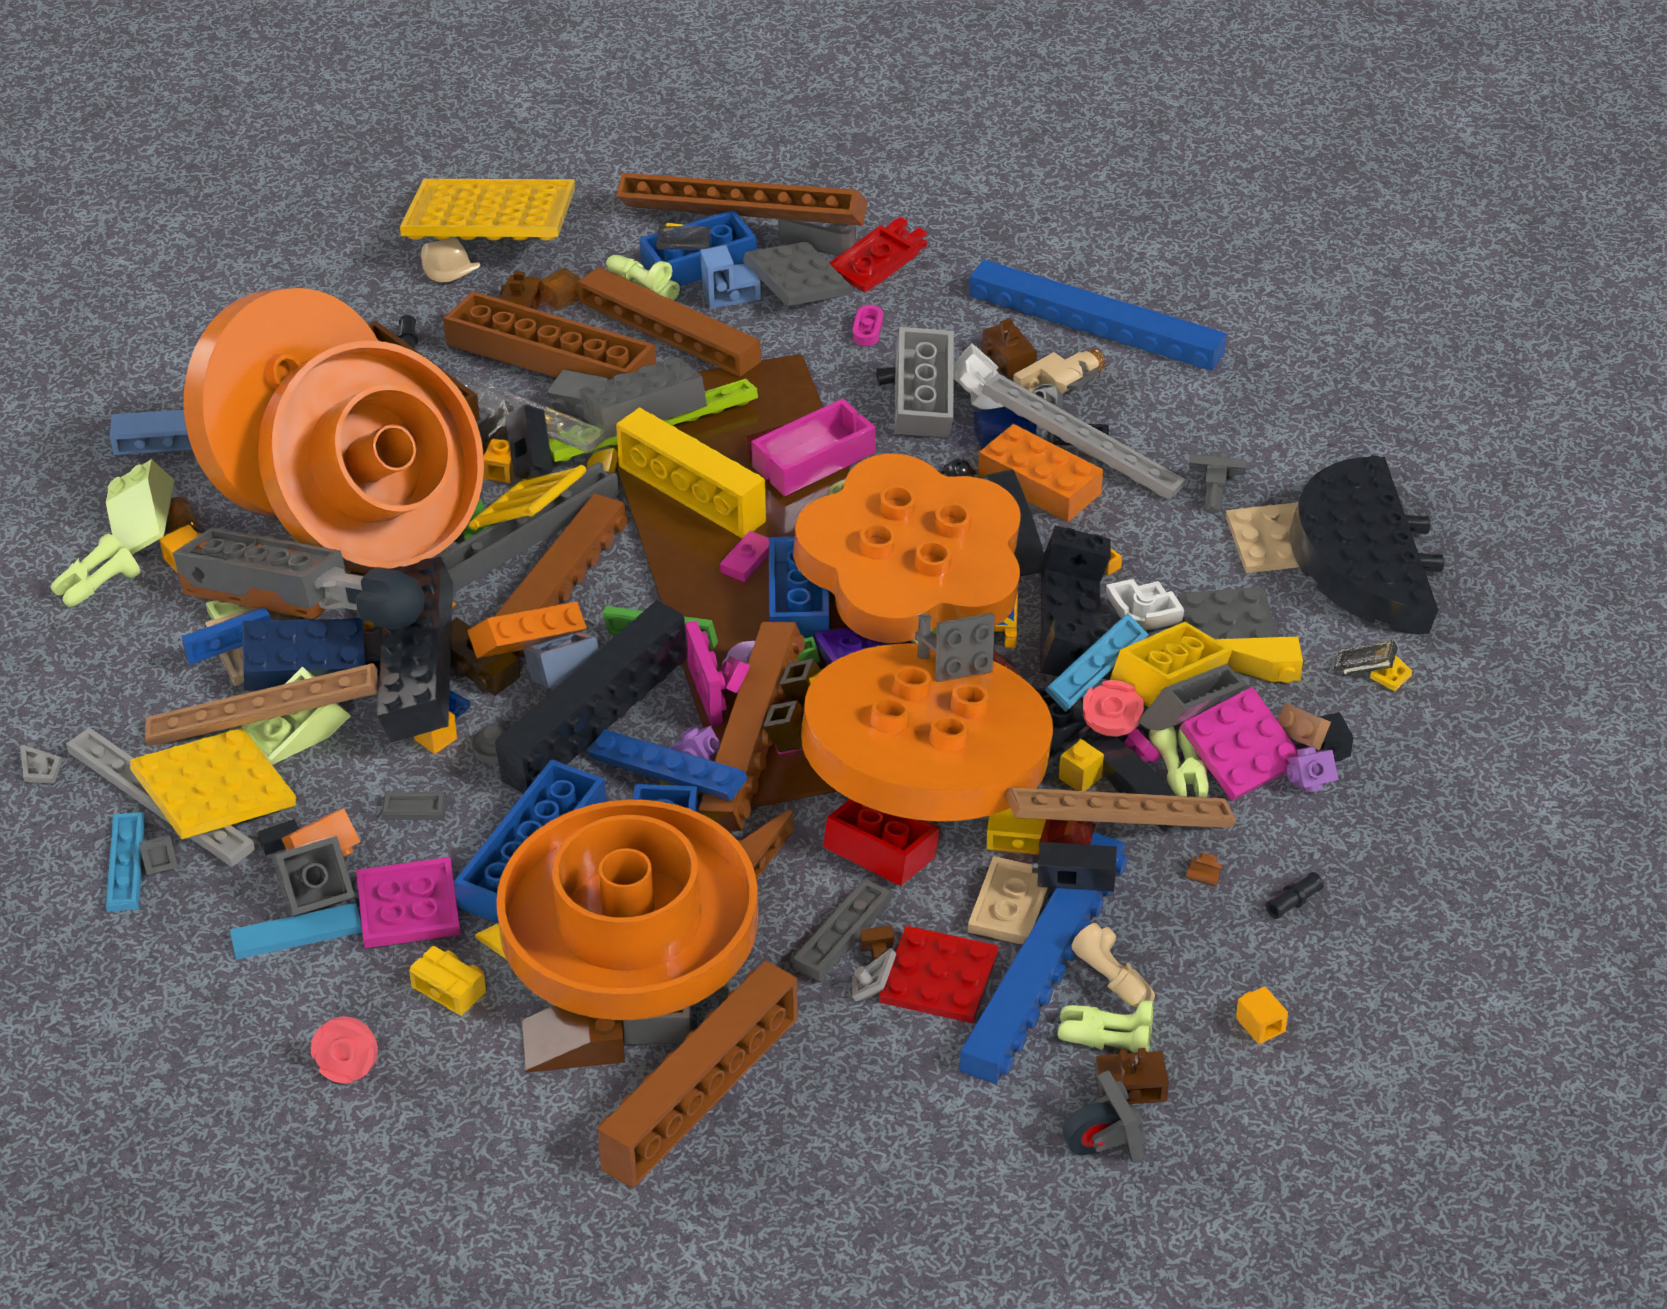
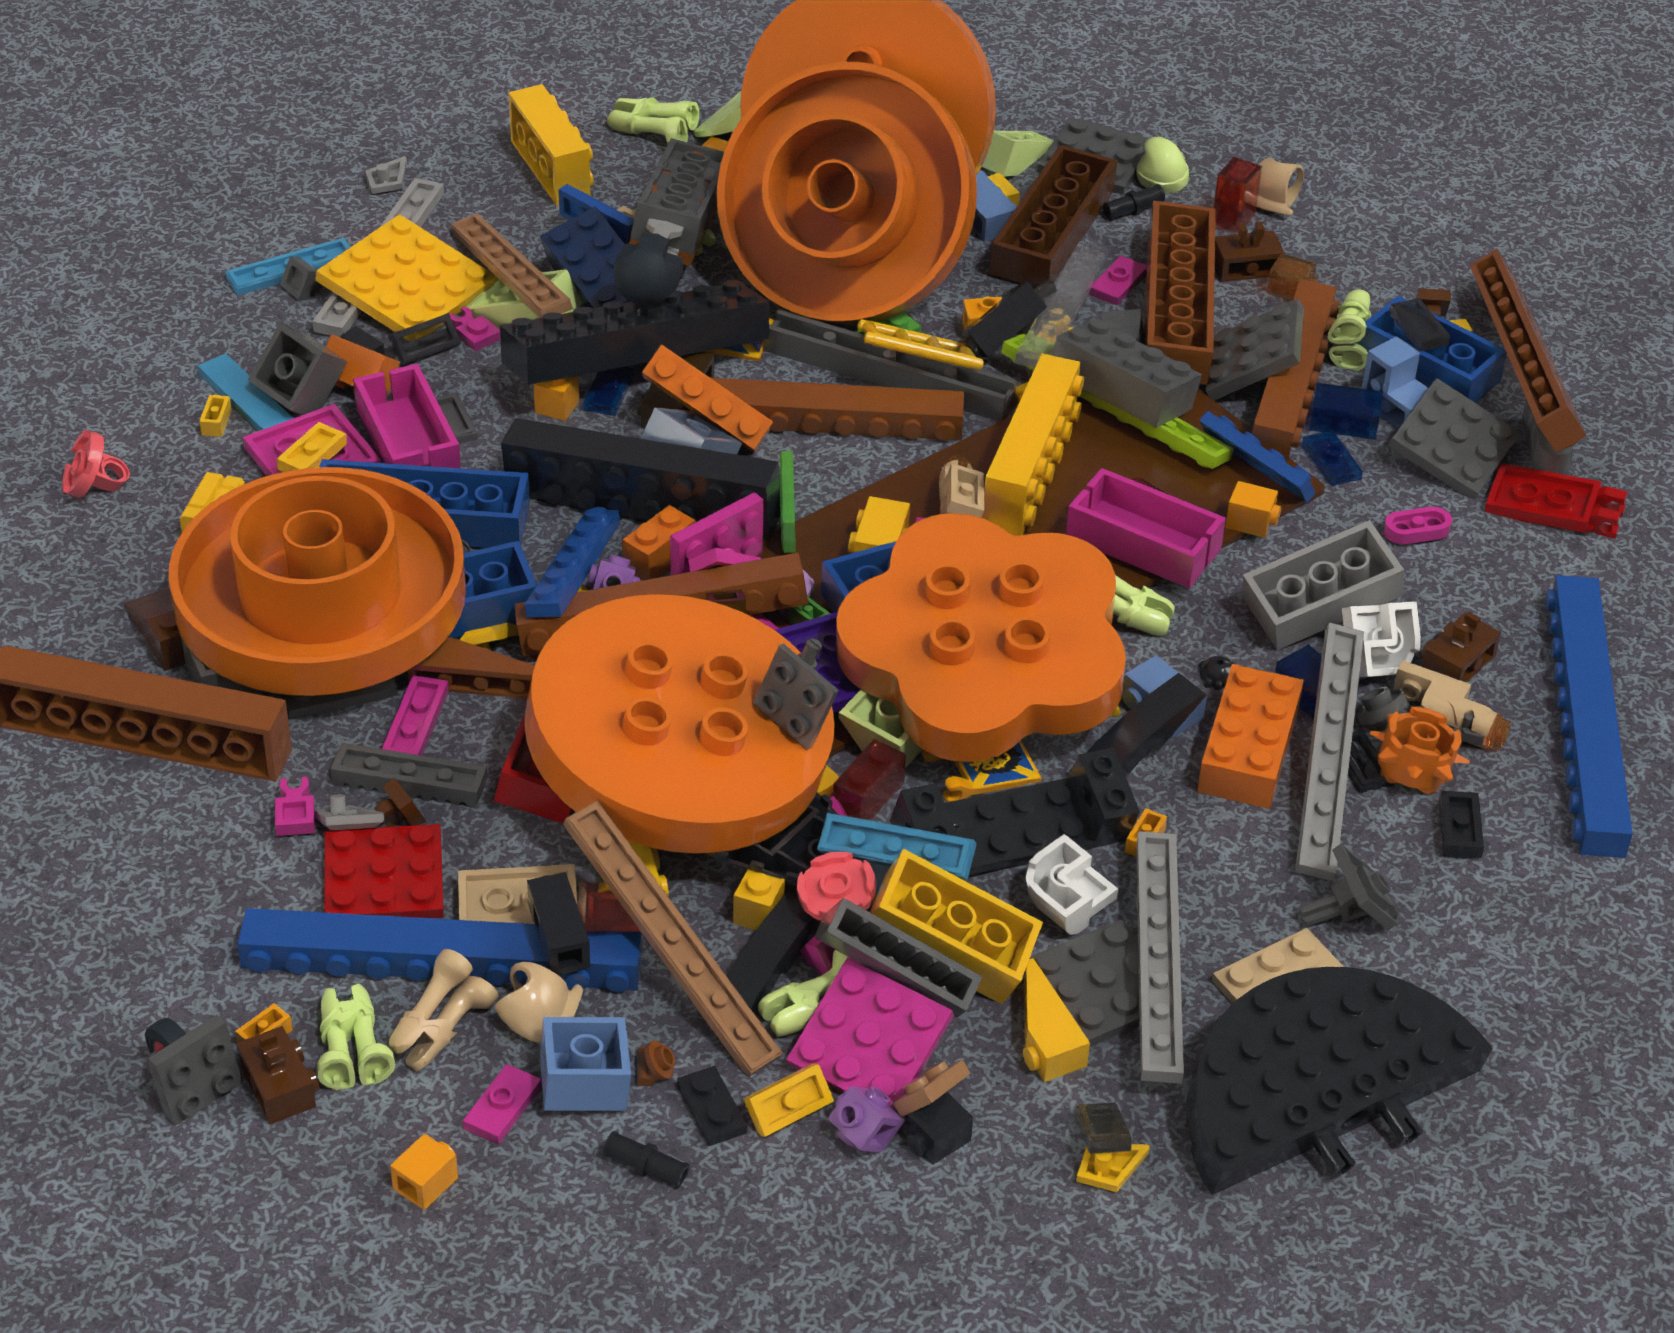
camera: 65 degrees right, 0 degrees up
(96, 639) = (549, 141): none -> yellow brick
(299, 789) = (400, 348): none -> black tile
(302, 761) = (475, 332): none -> dark pink plate
(313, 955) = (215, 415): none -> yellow piece
(378, 305) = (1162, 165): none -> yellowish green piece
(423, 826) = (411, 425): none -> dark pink piece
(425, 892) = (309, 450): none -> yellow plate
(453, 275) = (1236, 193): none -> clear red brick
(488, 208) = (1366, 181): yellow plate -> none
(493, 374) = (1118, 280): none -> dark pink plate
(636, 231) = (1435, 300): none -> reddish brown tile
(653, 318) = (1256, 349): none -> dark grey plate
(660, 713) = (650, 543): none -> orange brick
(721, 526) = (961, 487): none -> tan plate
(732, 587) = (879, 523): none -> yellow brick
(734, 308) = (1346, 411): none -> clear blue brick
(769, 368) = (1267, 462): none -> blue plate
(774, 341) = (1332, 458): none -> clear blue plate
(788, 915) = (417, 715): none -> dark pink plate
(816, 391) = (1252, 509): none -> light orange brick
(847, 1010) = (294, 809): none -> dark pink plate
(1077, 1079) = (265, 1021): none -> light orange piece
(1100, 398) = (1418, 749): none -> orange brick
(1129, 909) = (540, 997): none -> tan piece
(1166, 409) = (1461, 824): none -> black plate
(1202, 898) = (585, 1064): none -> medium blue brick
(1206, 961) = (502, 1104): none -> dark pink plate
(1234, 579) = (1159, 958): none -> light grey plate
(1255, 850) = (712, 1105): none -> black plate
(1273, 805) = (788, 1099): none -> yellow plate

